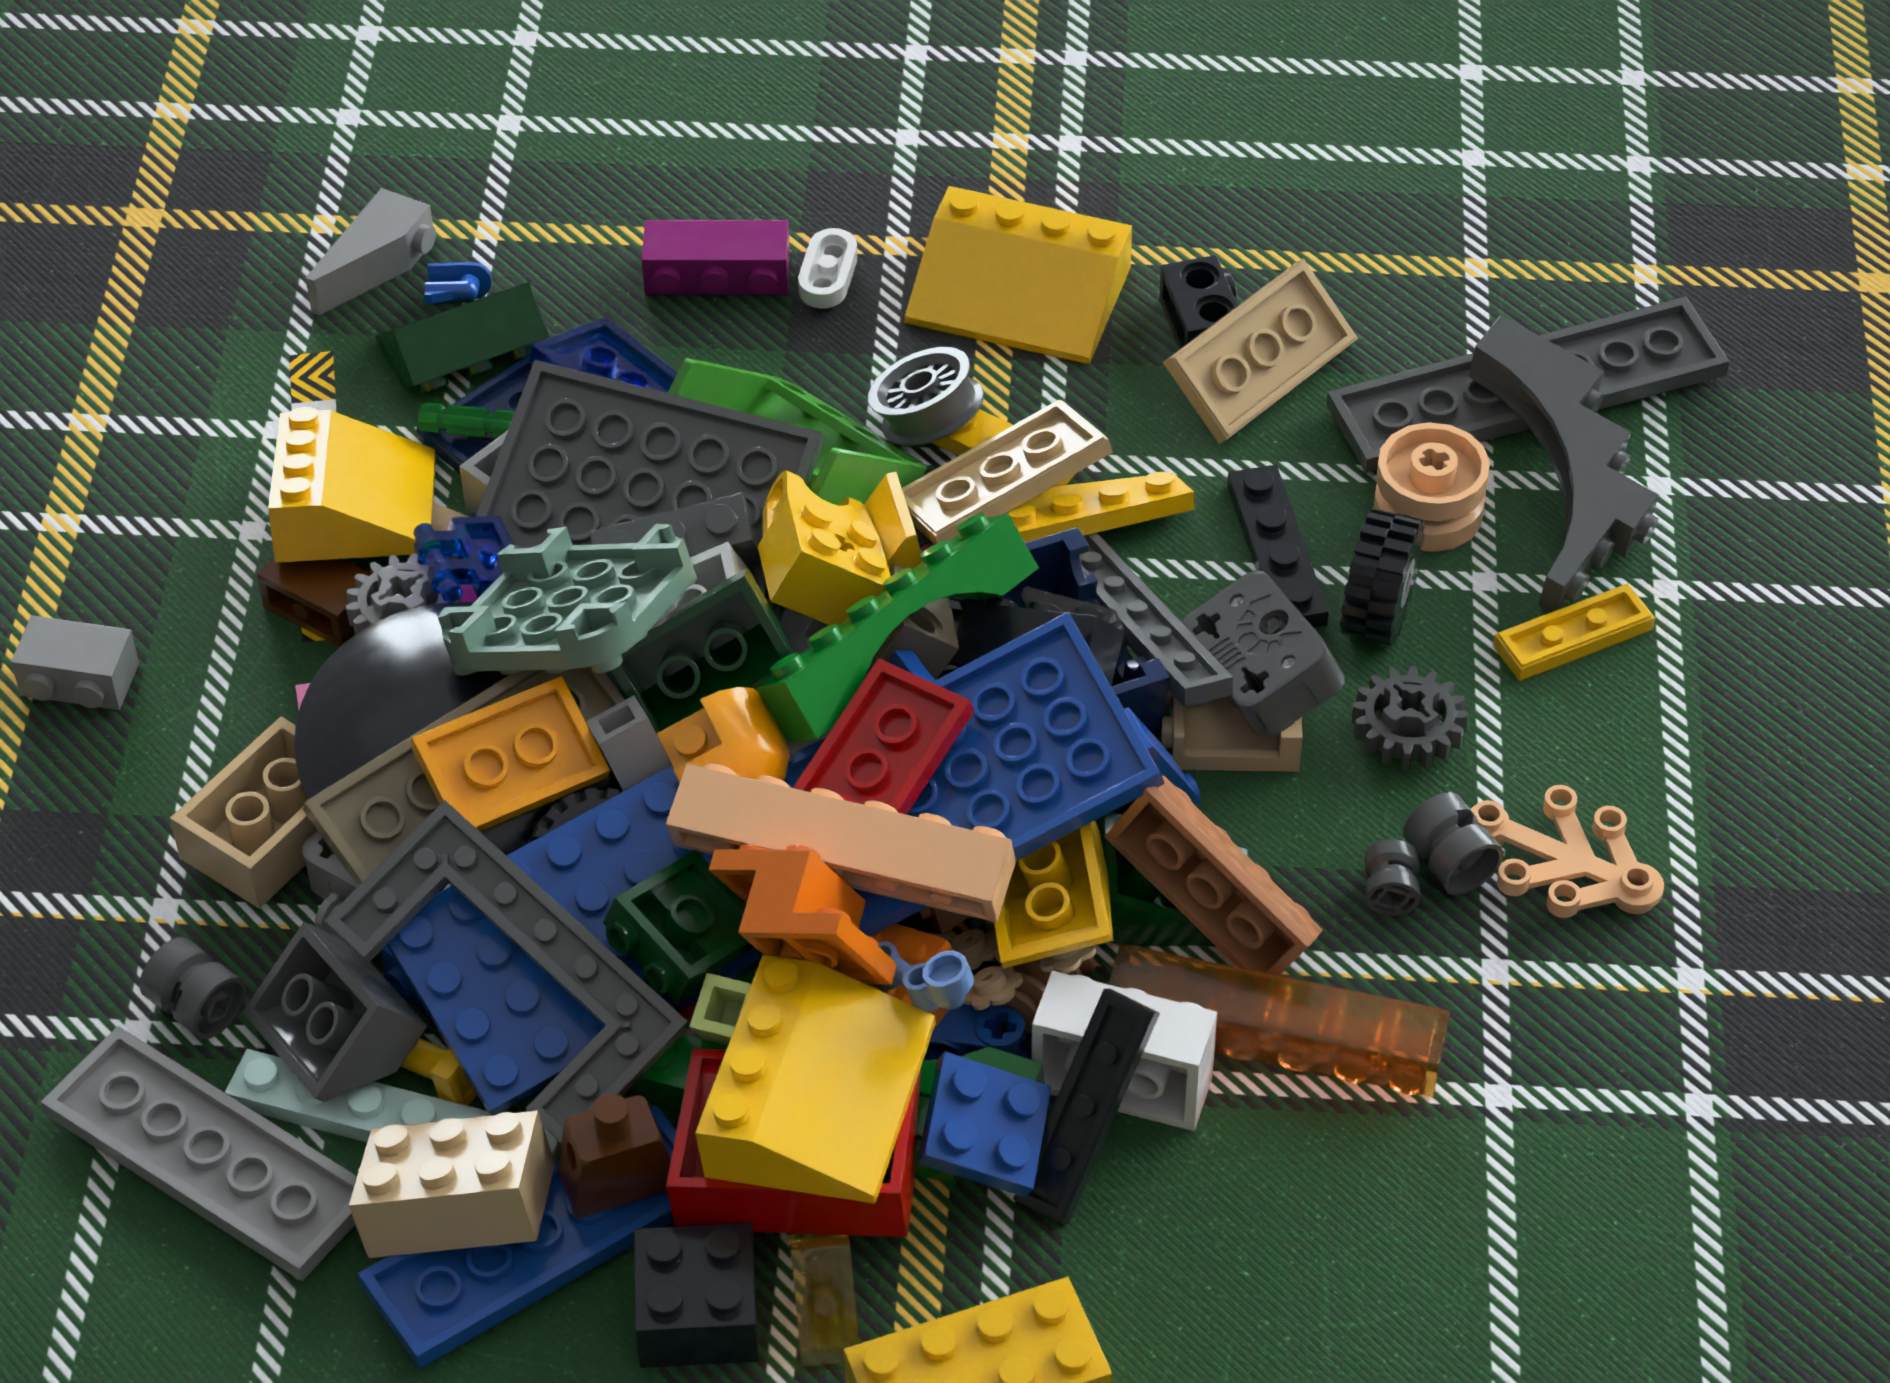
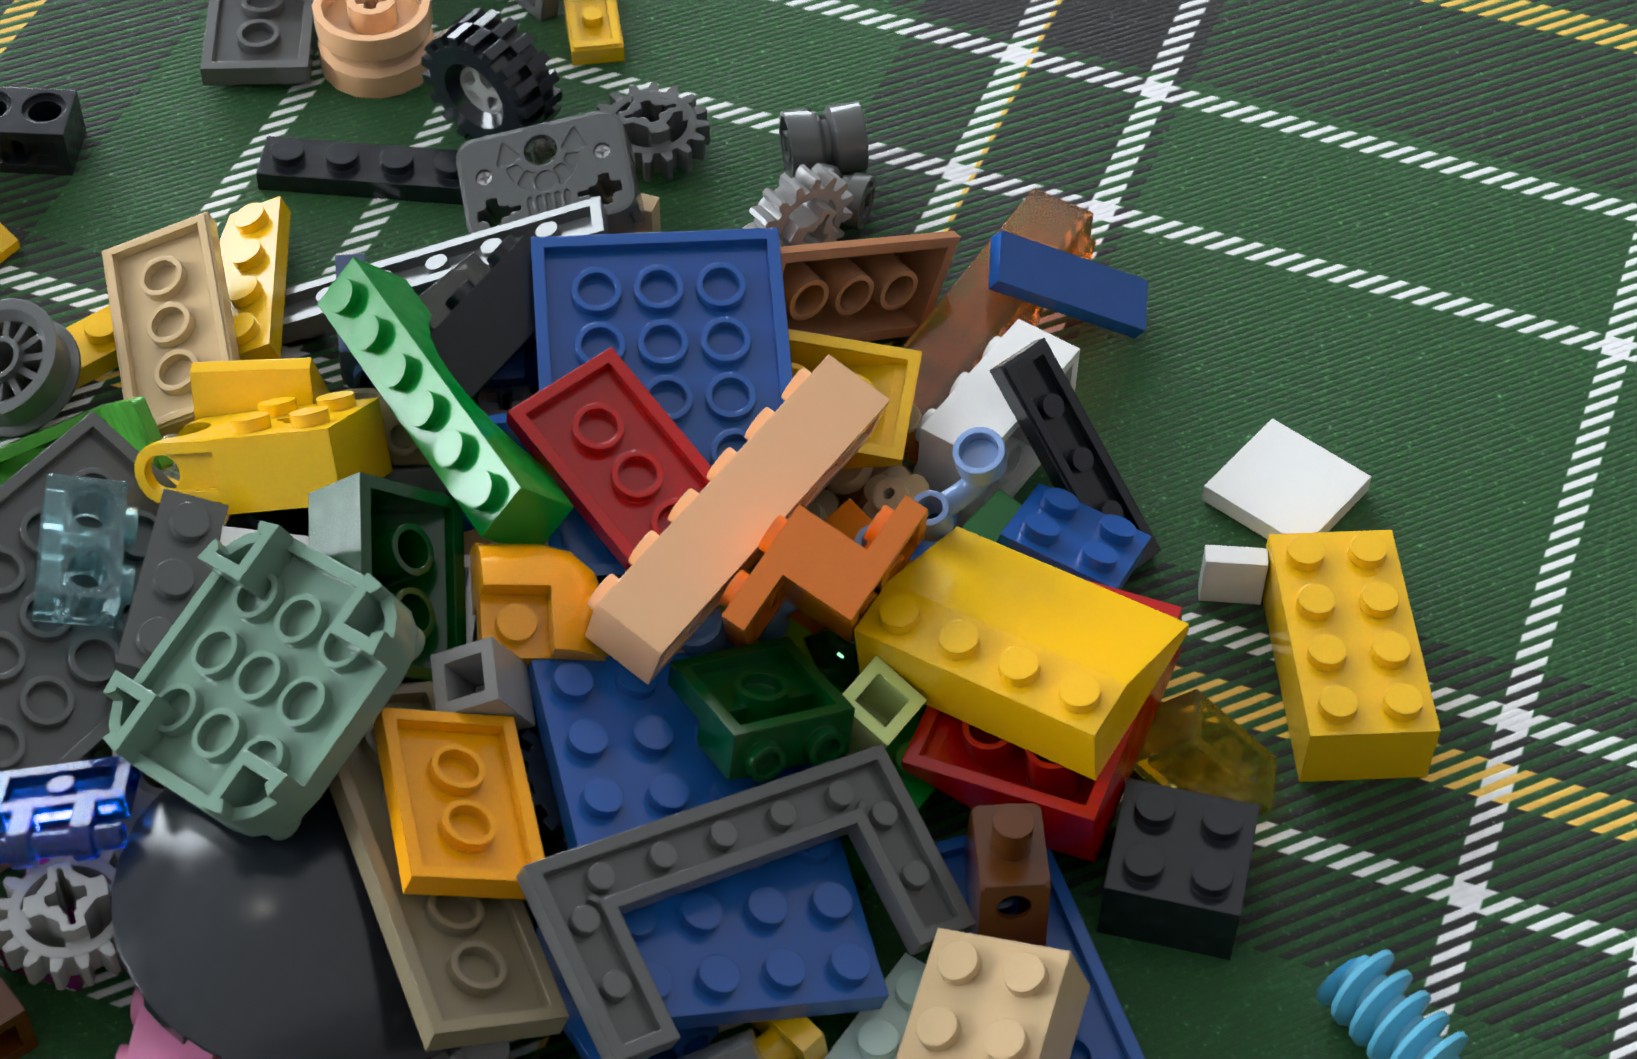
camera: 75 degrees left, 0 degrees up
(681, 464) = (73, 550): none -> clear light blue brick
(1040, 1262) = (1233, 574): none -> white tile
(1181, 1310) = (1285, 484): none -> white tile
(1260, 351) = (117, 97): tan tile -> none
(1315, 842) = (805, 207): none -> light grey gear
(1332, 1066) = (1067, 284): none -> blue tile
(1573, 858) = (905, 52): light nougat plant -> none

